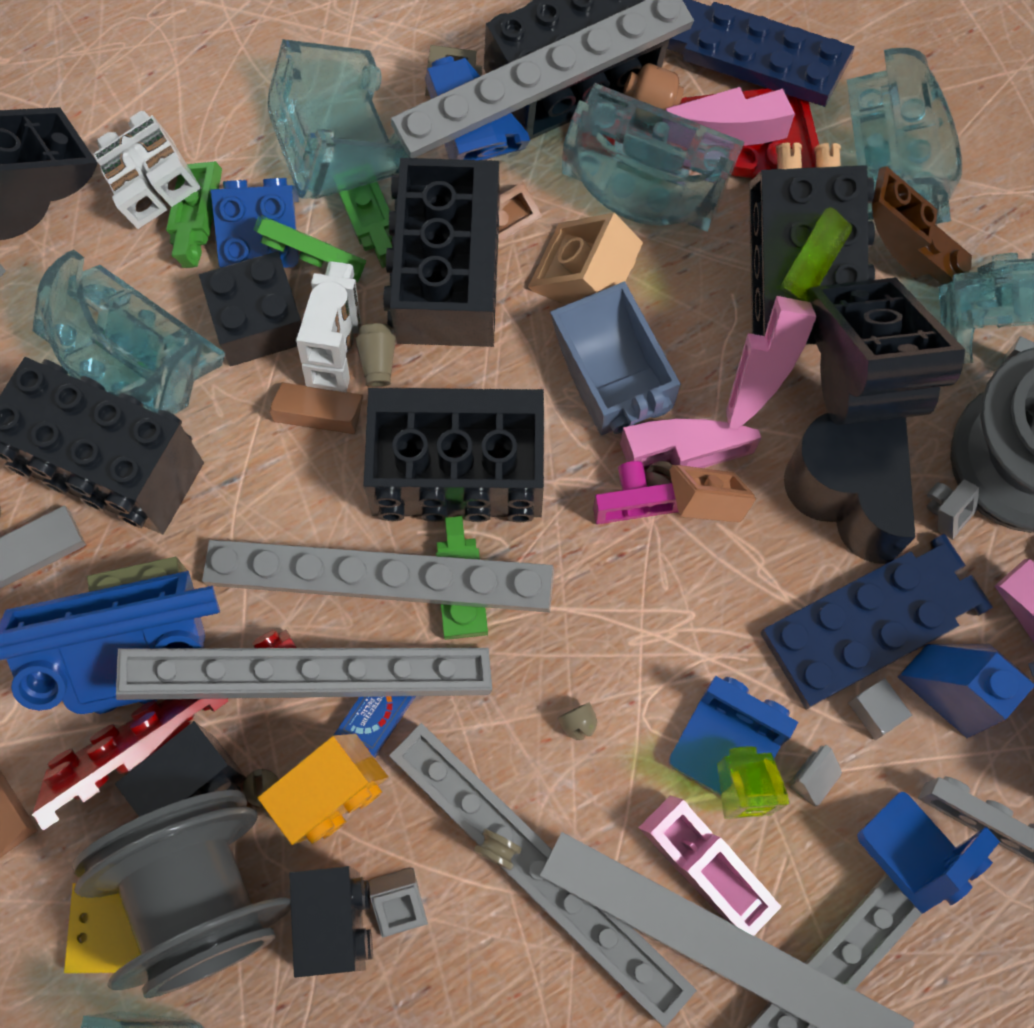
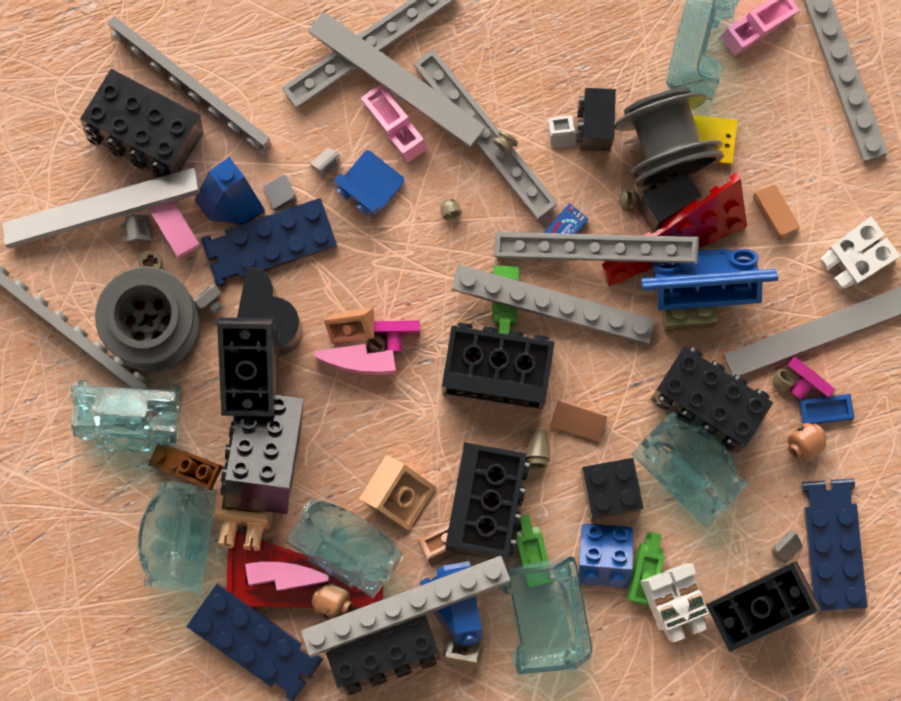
camera: 170 degrees left, 10 degrees up
(312, 249) = (574, 524): bright green hinge -> none
(323, 788) = (592, 184): light orange brick -> none
(329, 328) = (565, 464): white hips -> none
(615, 359) = (391, 417): sand blue piece -> none
(750, 784) = (366, 153): clear neon green slope -> none
(769, 358) = (304, 385): bright pink slope -> none
(816, 255) = (268, 432): clear neon green slope -> none
(921, 856) = (281, 110): blue bracket -> none

